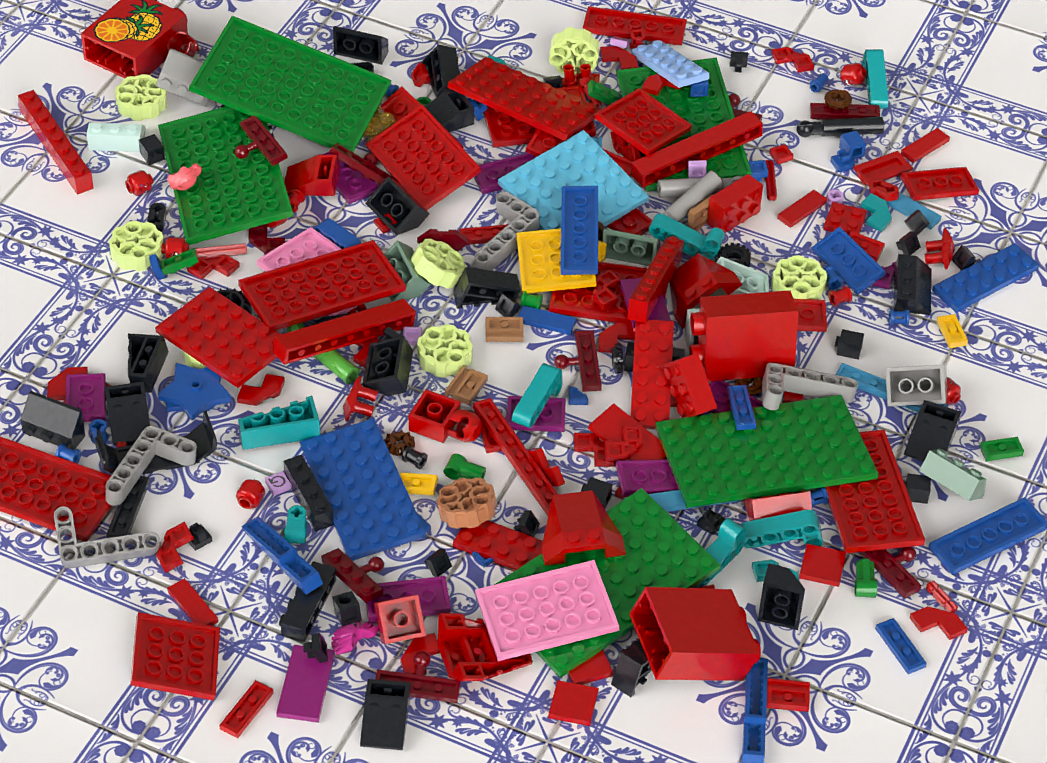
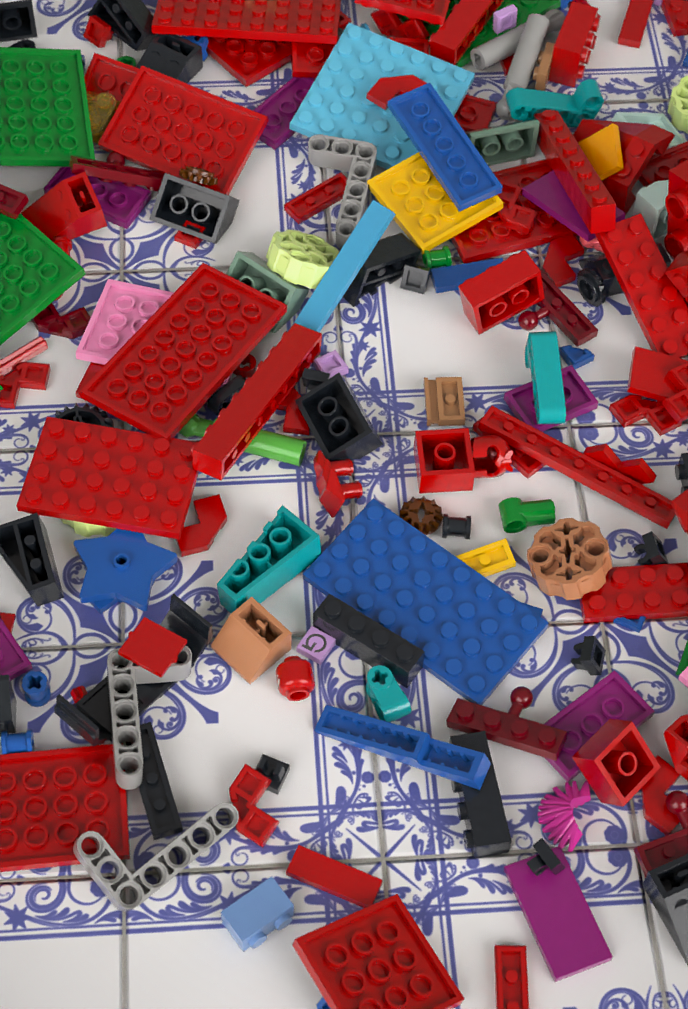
camera: 30 degrees left, 10 degrees up
(127, 411) = (59, 643): black slope -> none
(133, 598) = (258, 914): none -> medium blue brick
(174, 434) = (152, 647): none -> red piece
(239, 461) = (252, 640): none -> nougat slope
(336, 234) = (150, 274): blue beam -> none
(346, 608) = (544, 782): black brick -> none
(410, 186) = (198, 175): none -> reddish brown gear
(444, 350) = (385, 361): yellowish green connector -> none
(450, 237) = (292, 220): dark red tile -> none
(455, 276) = (345, 267): none -> dark azure tile
(504, 329) = (432, 308): medium nougat plate -> none
(549, 334) = (501, 291): none -> red brick
(582, 180) = (391, 87): none -> red tile
(683, 278) = (604, 151): none -> light orange tile
(736, 251) = (616, 101): black tyre -> none

